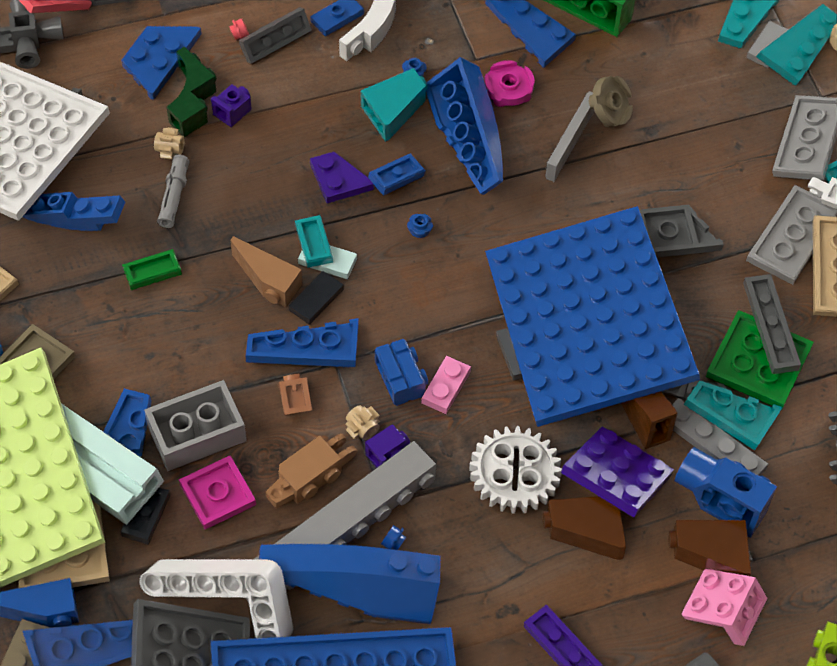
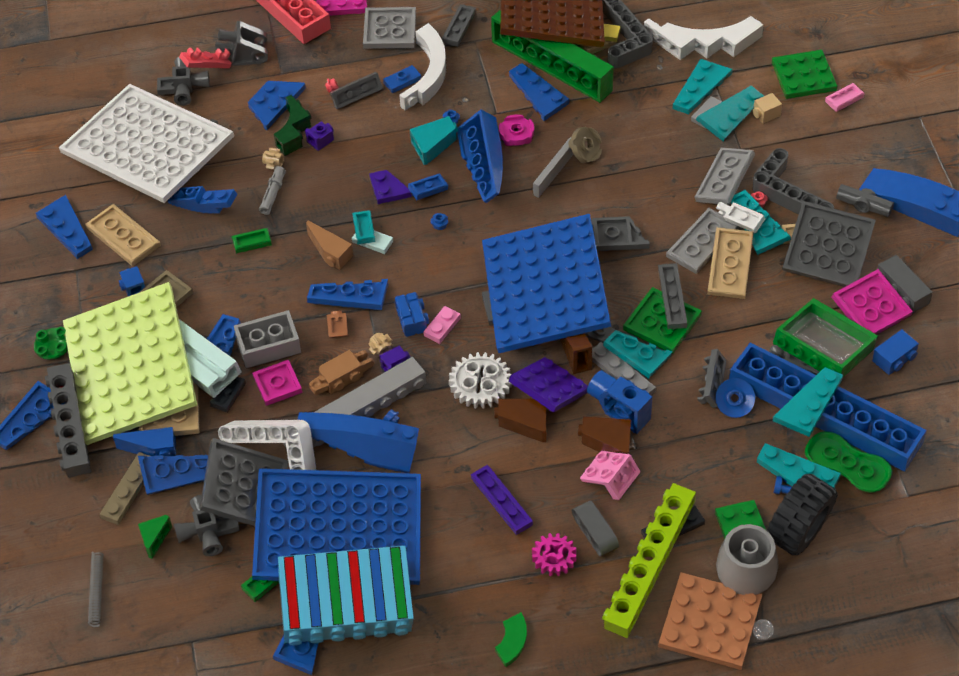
camera: 10 degrees right, 5 degrees down
(316, 297) = (361, 264): black tile -> none

